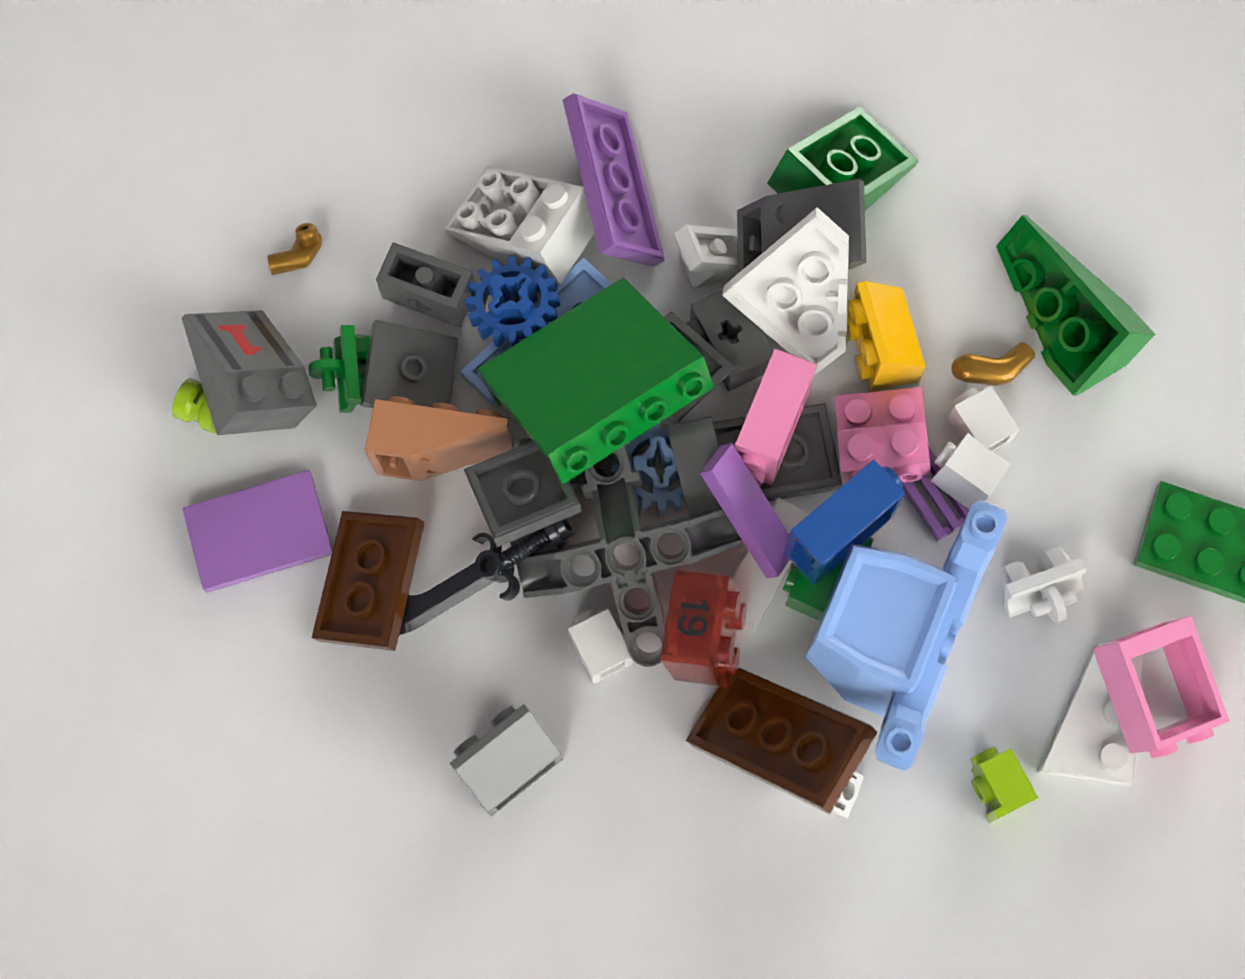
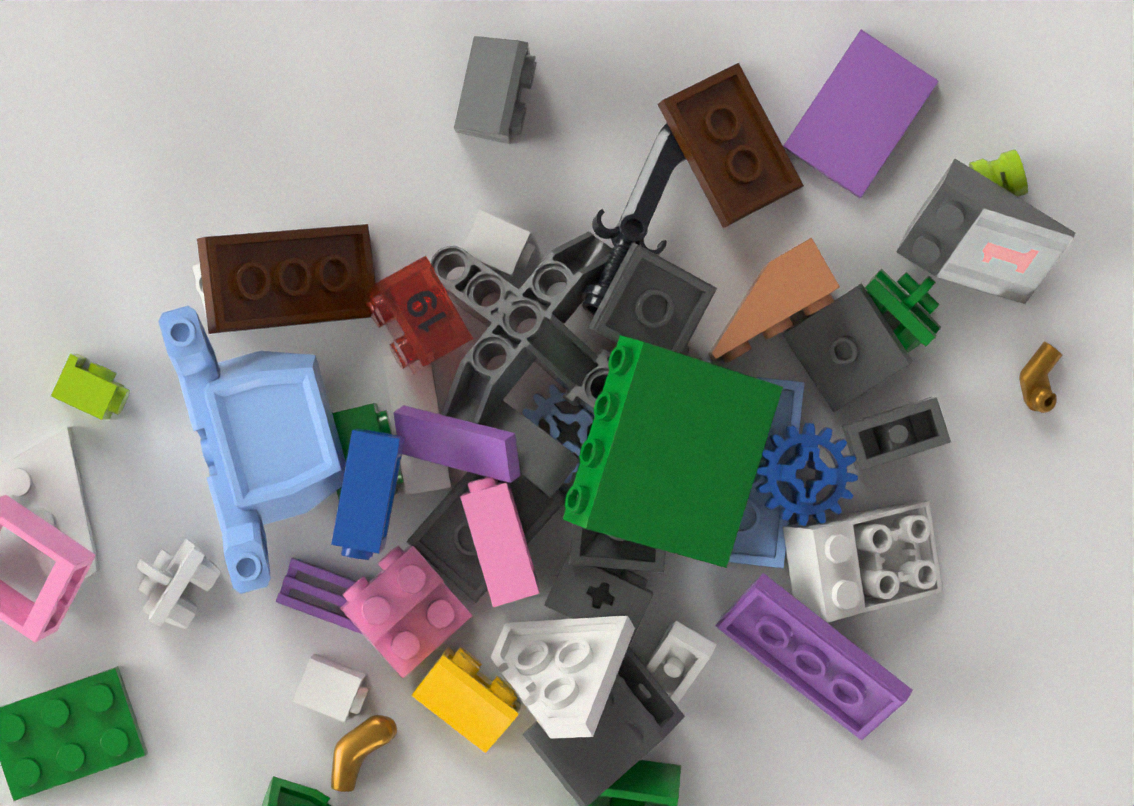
camera: 135 degrees right, 15 degrees up
(969, 470) = (307, 631): white brick -> none

